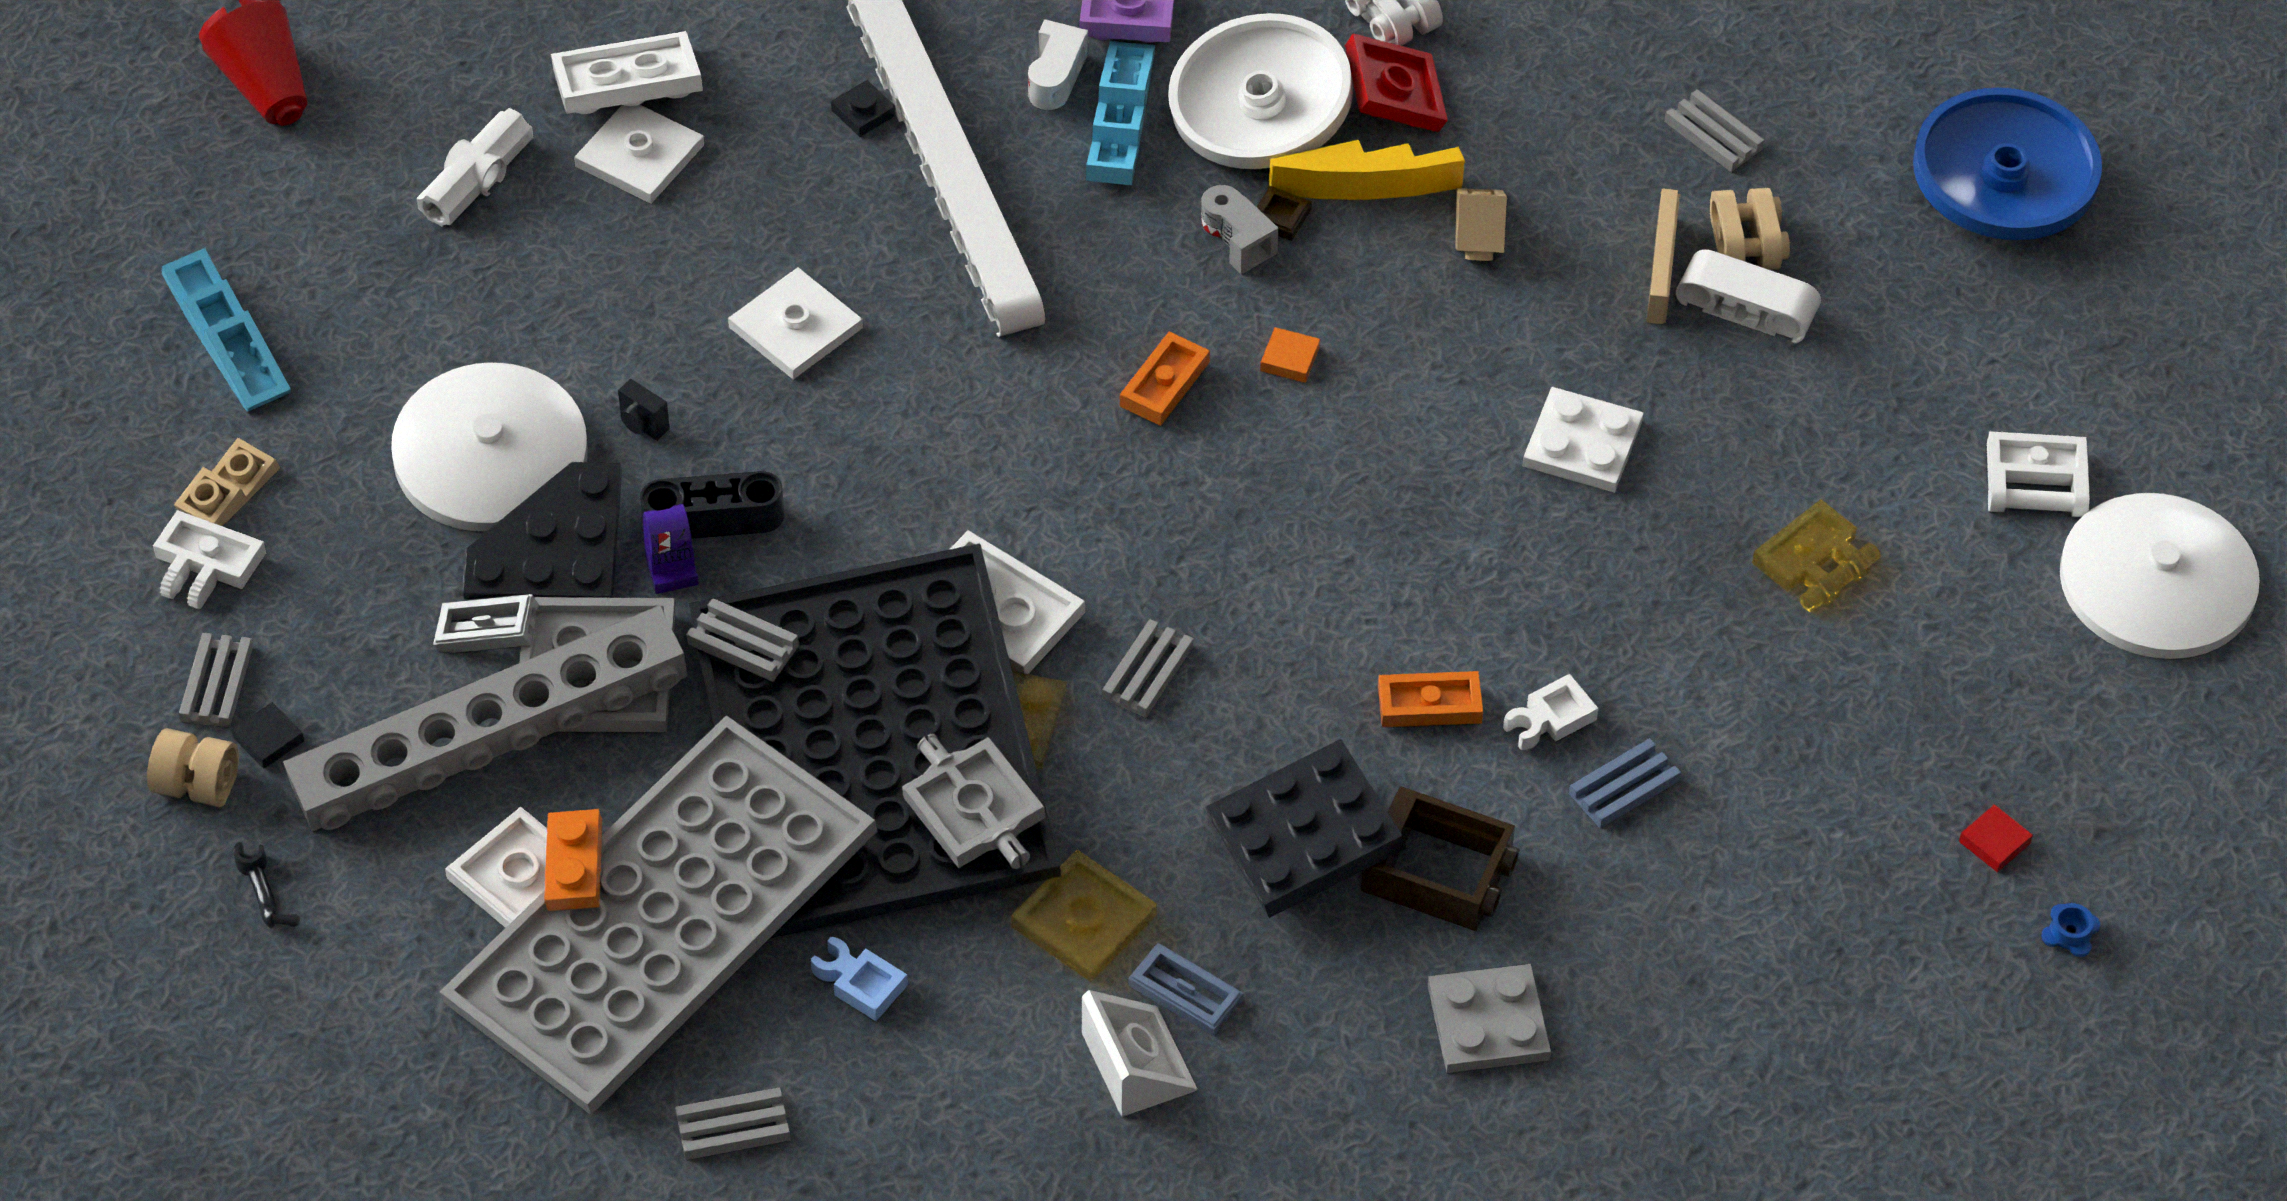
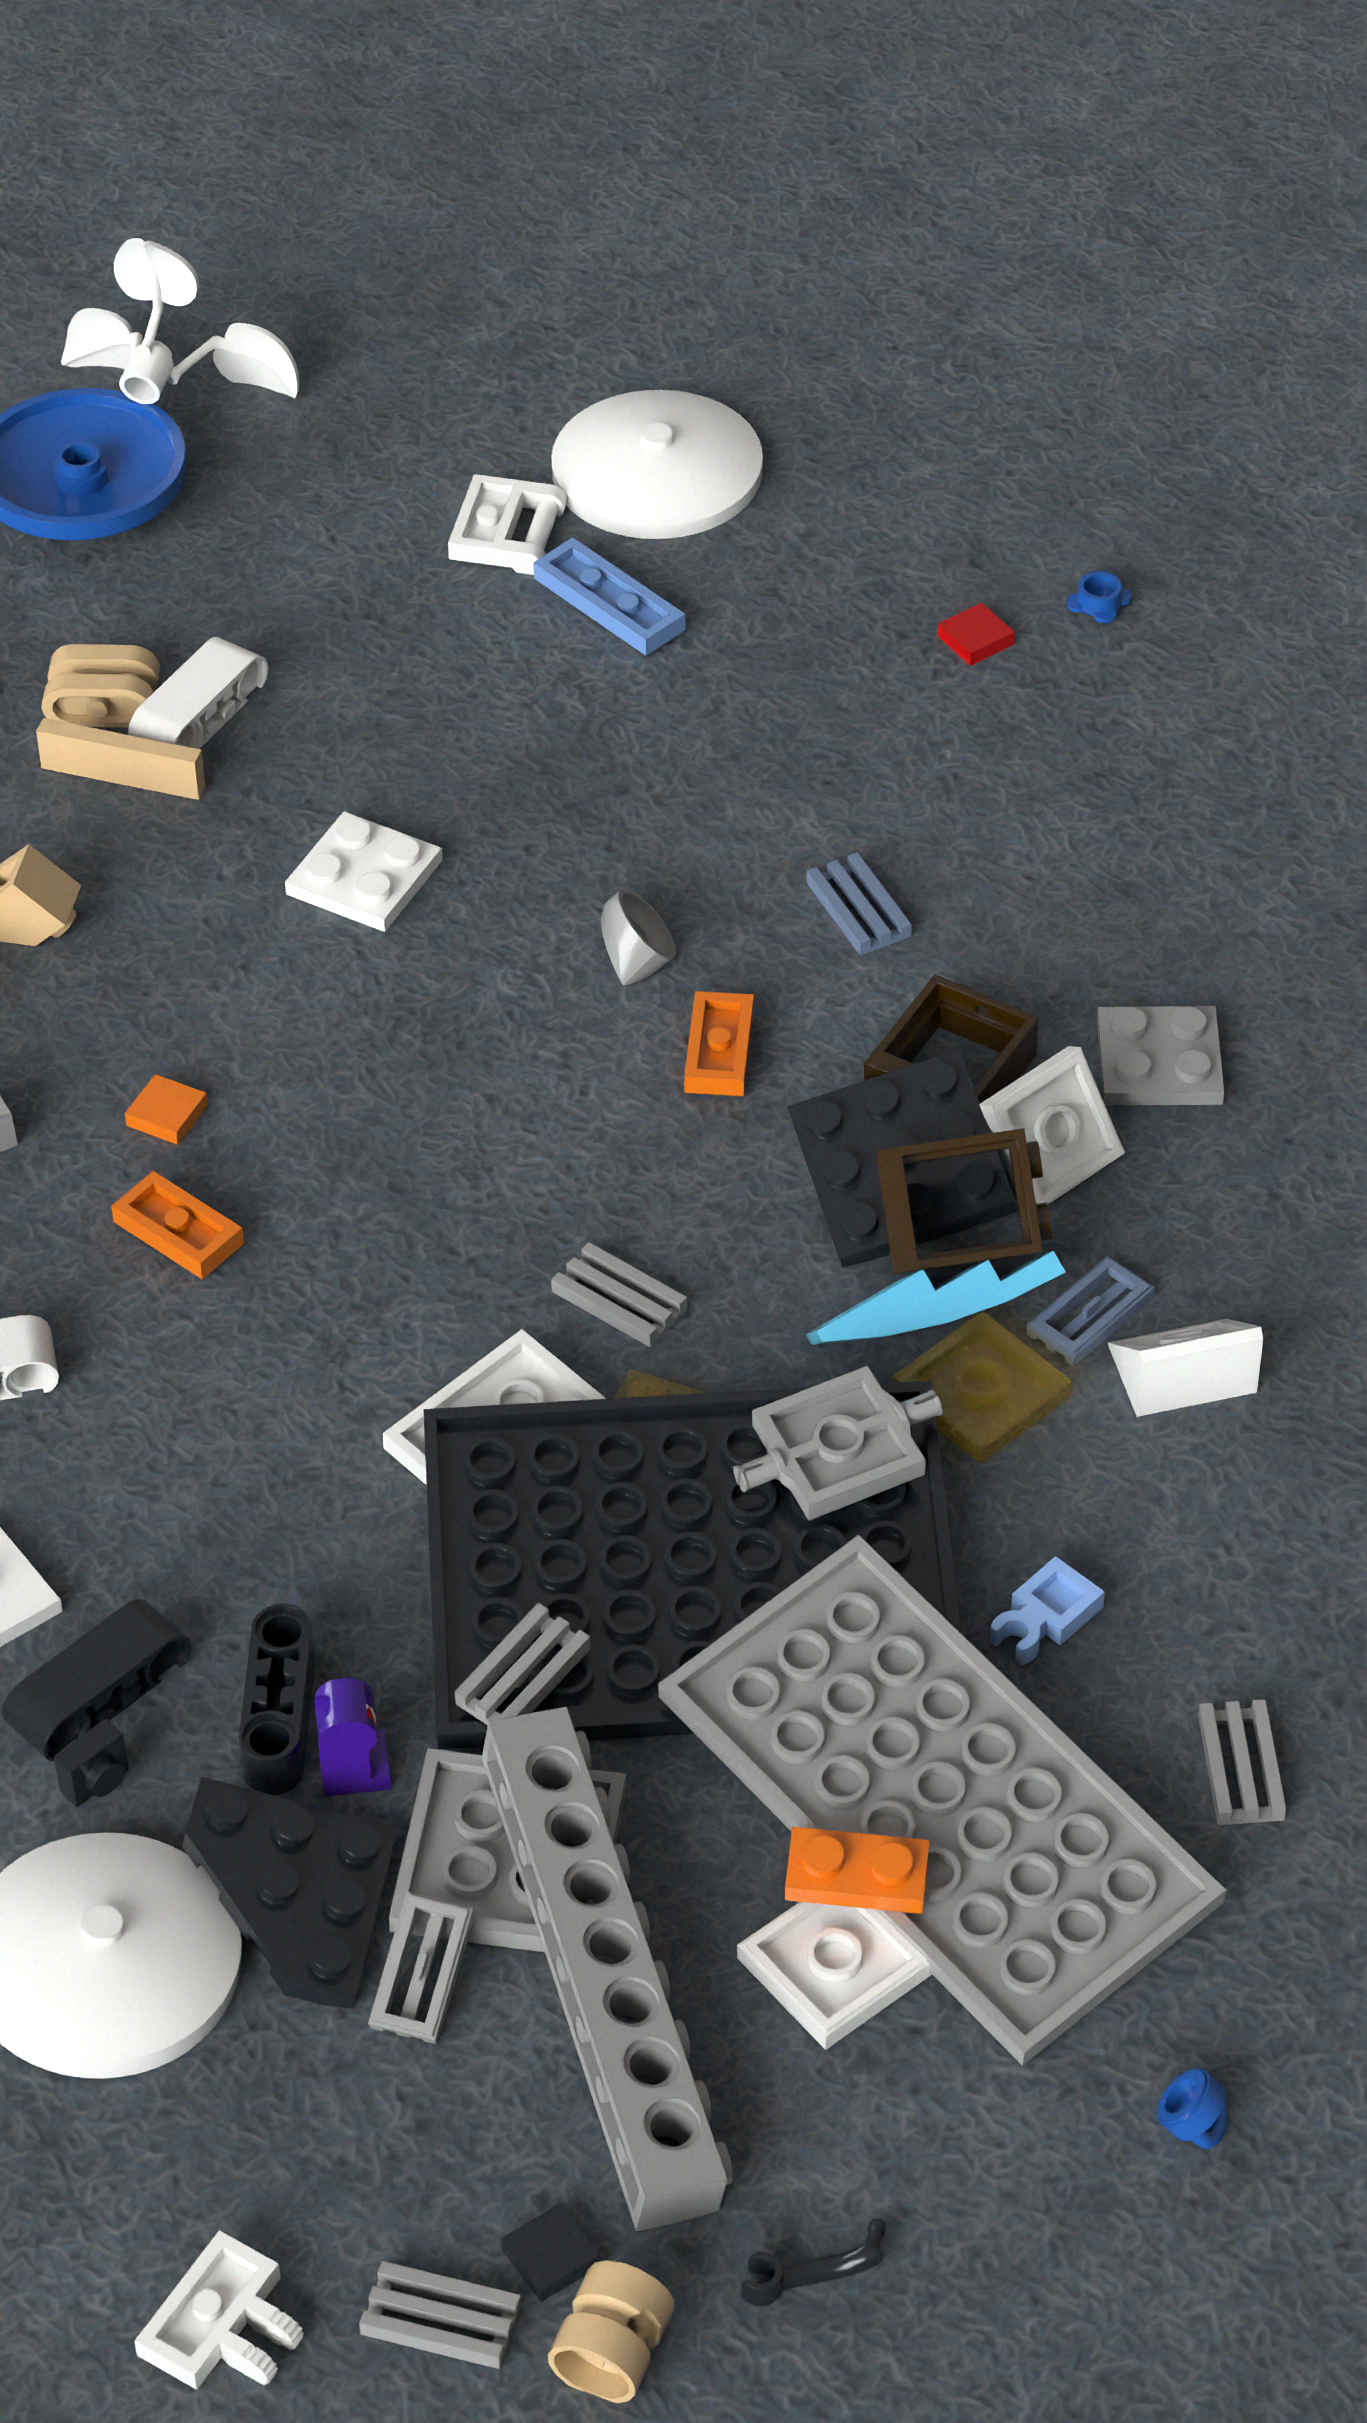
camera: 80 degrees left, 5 degrees down
(226, 488) = (85, 2288): tan slope -> none
(404, 1103) = (1192, 2106): none -> blue tile
(722, 401) = (95, 1677): none -> black beam
(1154, 863) = (916, 1304): none -> medium azure slope
(1198, 834) = (1025, 1166): none -> dark brown window
(1356, 928) = (1066, 1117): none -> white plate
(1539, 626) = (635, 937): none -> light grey piece
(1552, 709) = (756, 939): white plate -> none
(1808, 543) = (570, 715): clear yellow plate -> none
(1961, 558) = (609, 596): none -> medium blue plate
(2121, 175) = (161, 275): none -> white plant

